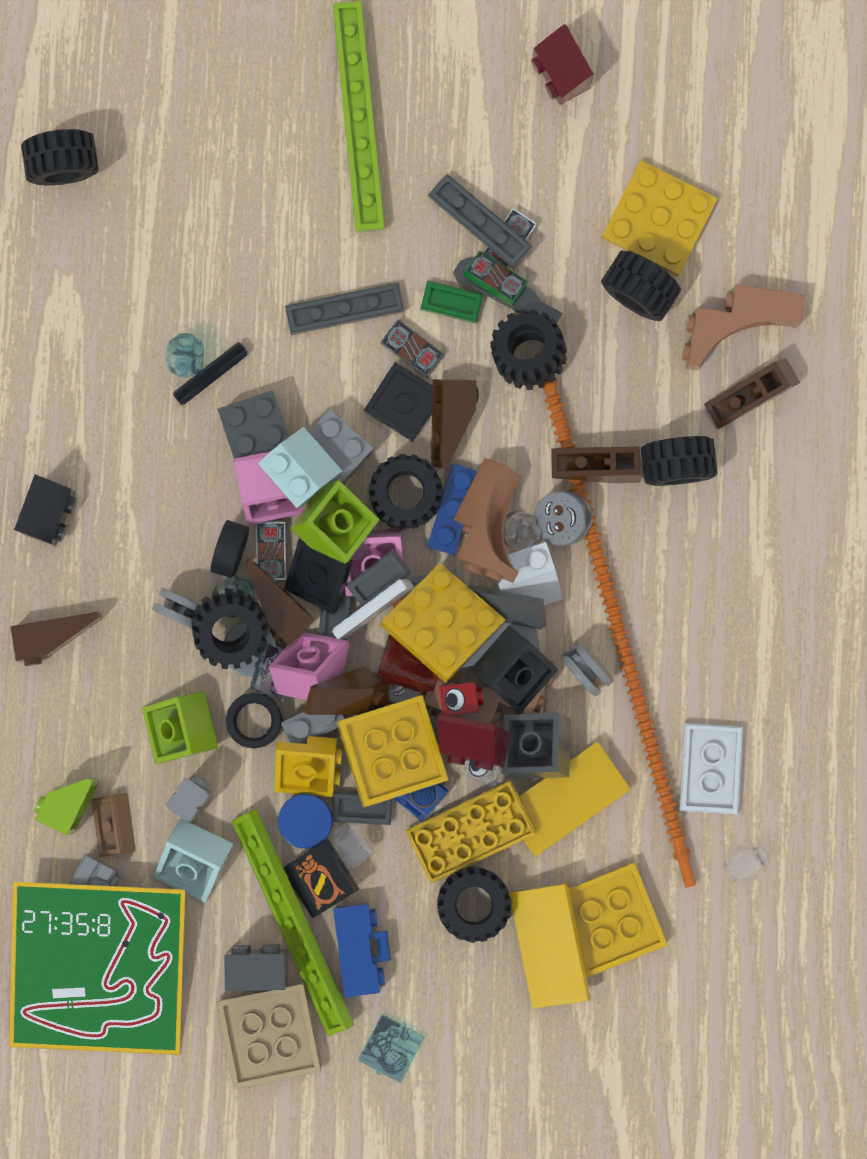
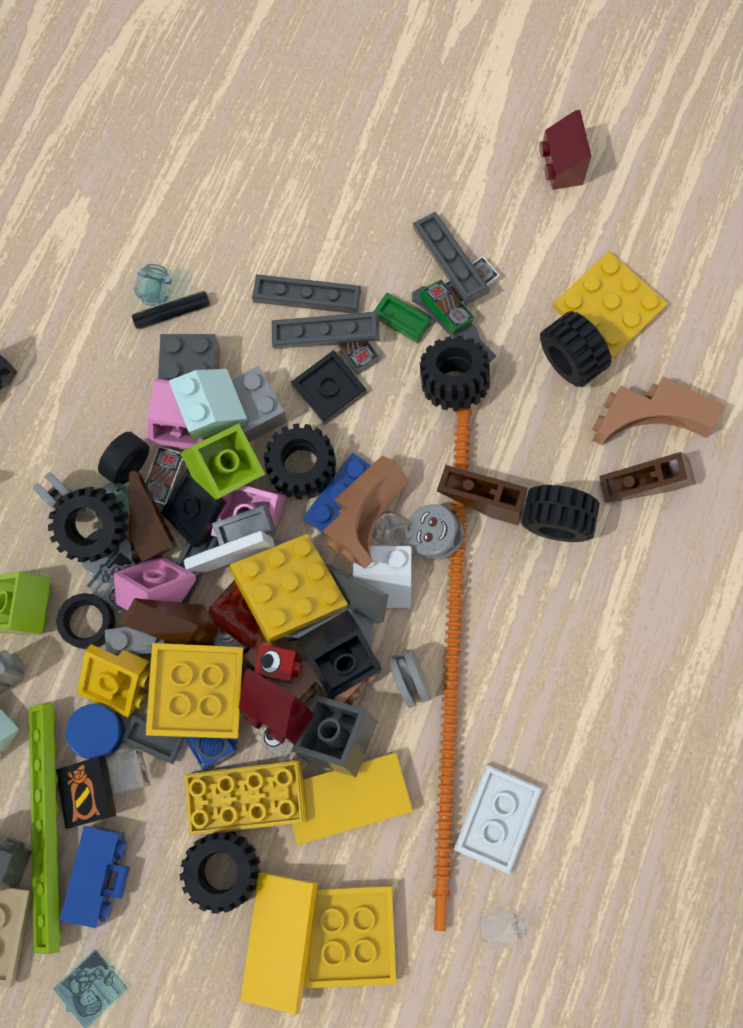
camera: 30 degrees right, 10 degrees down
(59, 157) = (112, 93): black tyre -> none
(358, 116) = (375, 146): lime plate -> none
(380, 344) = (325, 330): none -> dark grey tile
(452, 410) = (369, 403): reddish brown slope -> none

